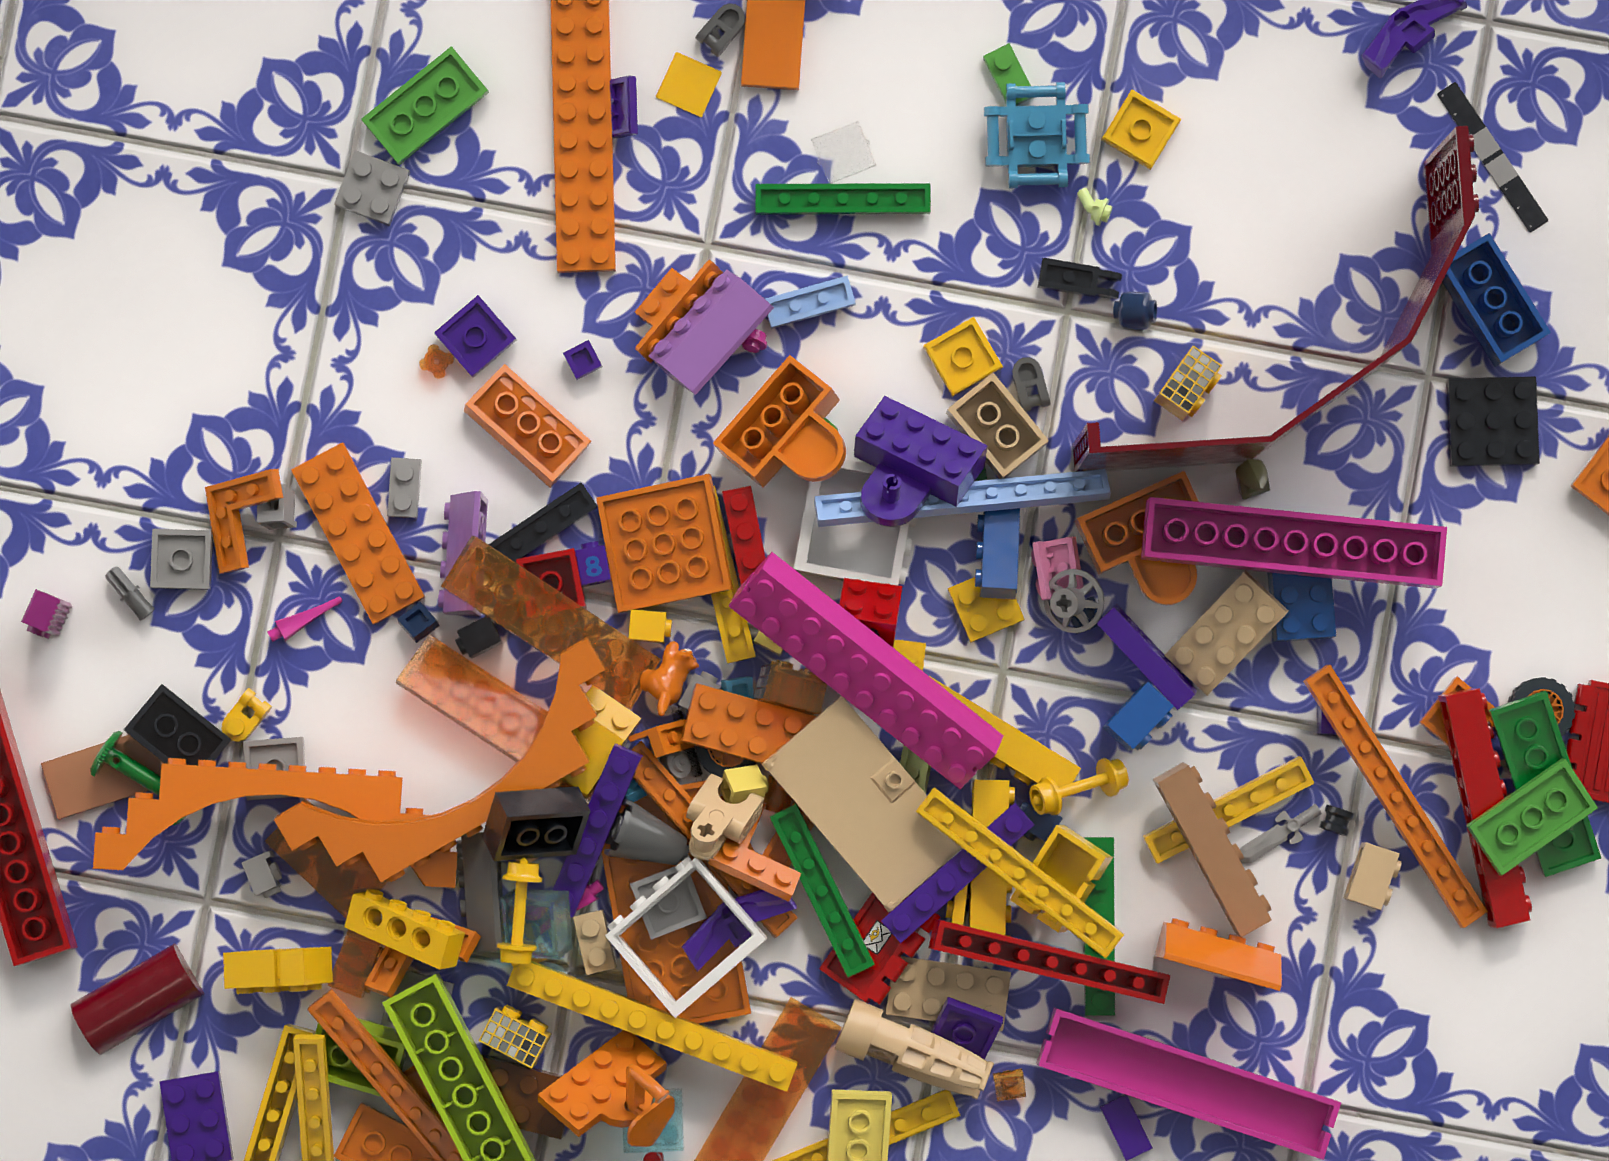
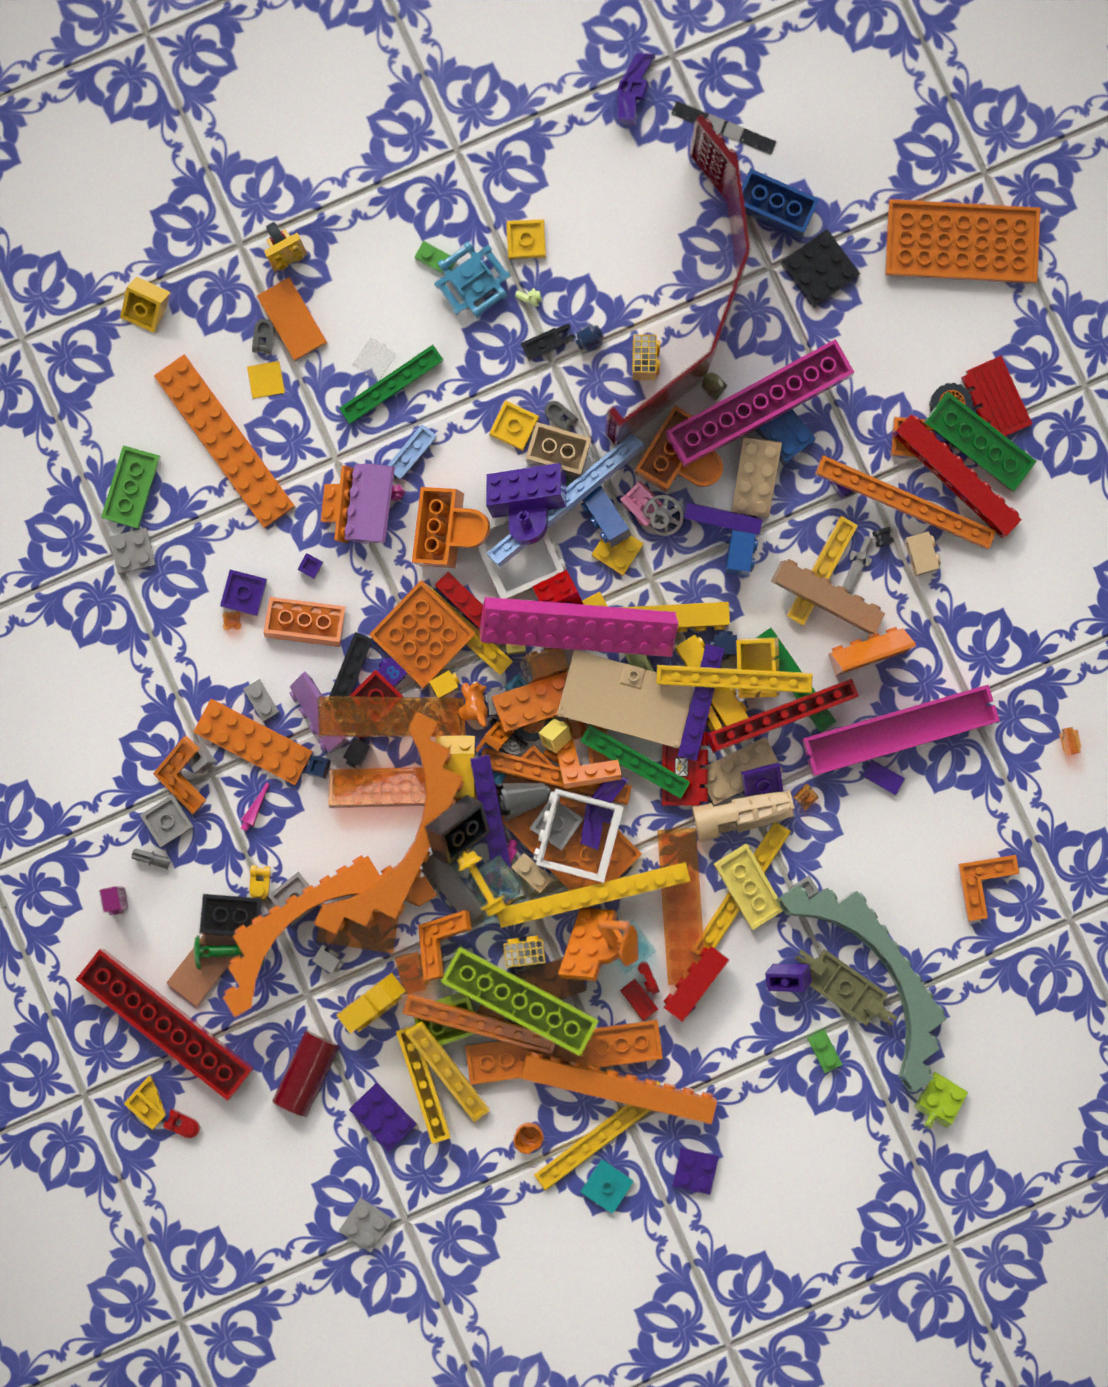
camera: 30 degrees left, 0 degrees up
(366, 920) = (401, 945): yellow brick -> none
(624, 106) = (239, 414): dark purple plate -> none
(719, 820) = (554, 760): tan piece -> none
(1047, 796) = (721, 628): yellow piece -> none
(1532, 816) = (985, 463): bright green plate -> none

